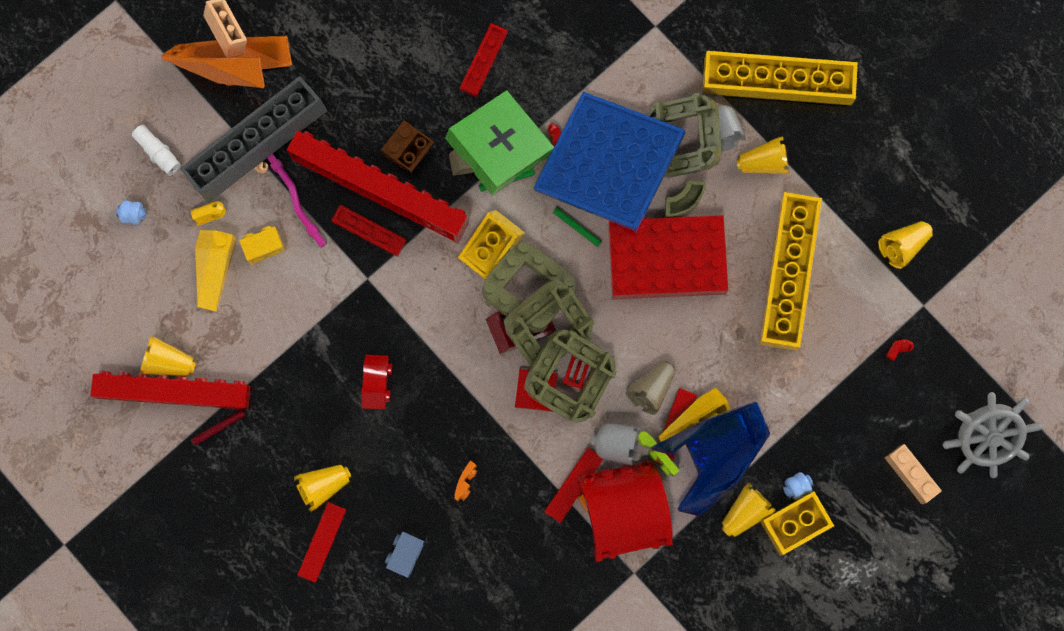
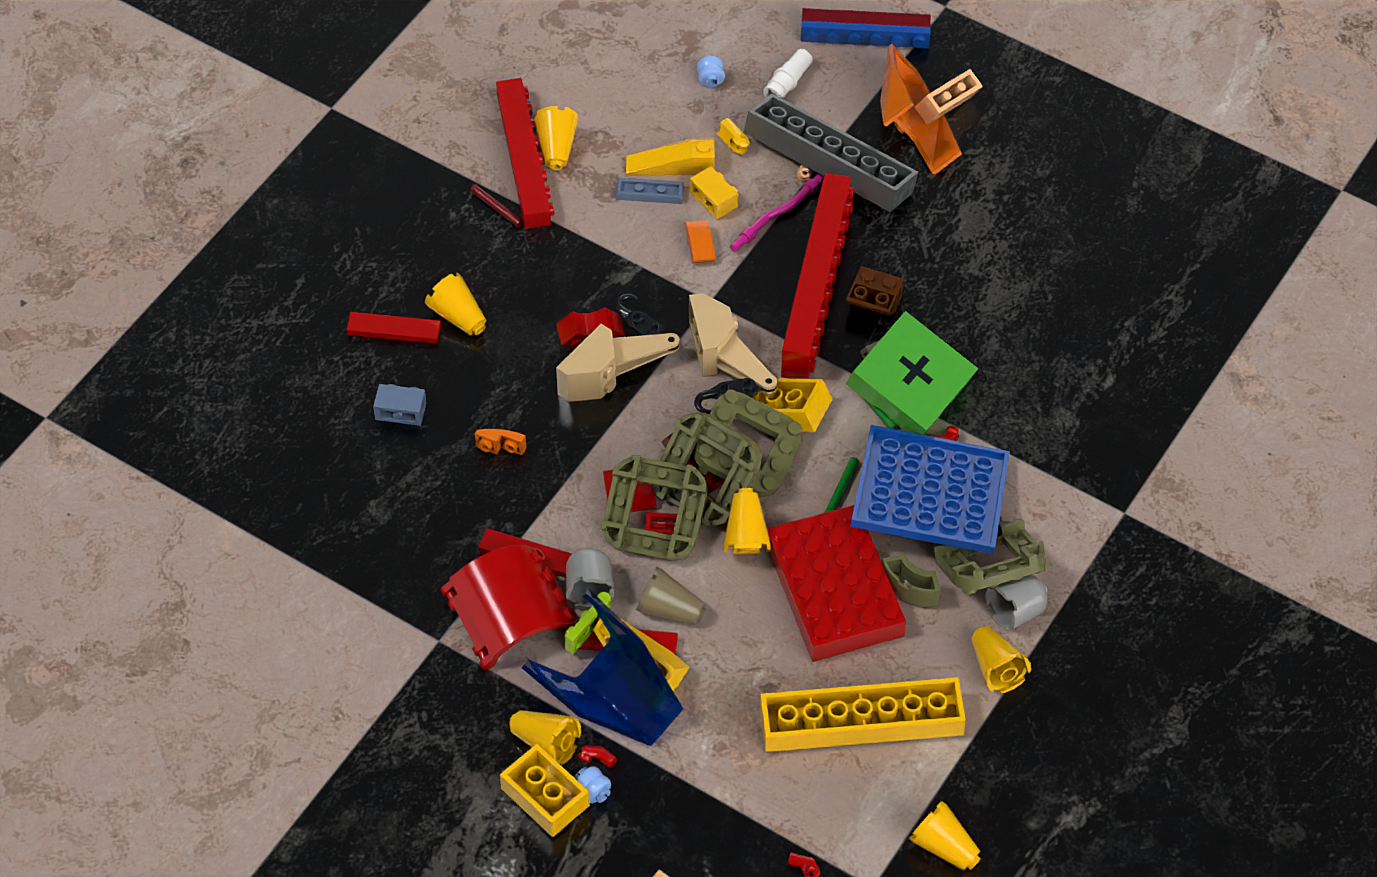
camera: 75 degrees right, 25 degrees down
(123, 72) = (865, 28): none -> blue brick
(240, 296) = (650, 190): none -> sand blue tile
(309, 269) = (700, 241): none -> orange slope
(369, 230) = (765, 288): red tile -> none
(412, 373) = (597, 361): none -> tan slope
(424, 285) = (721, 349): none -> tan slope
(483, 60) = (1011, 349): red tile -> none
(609, 310) = (746, 525): none -> yellow cone
(767, 476) = (598, 752): none -> red arm
(779, 78) = (1107, 650): yellow brick -> none

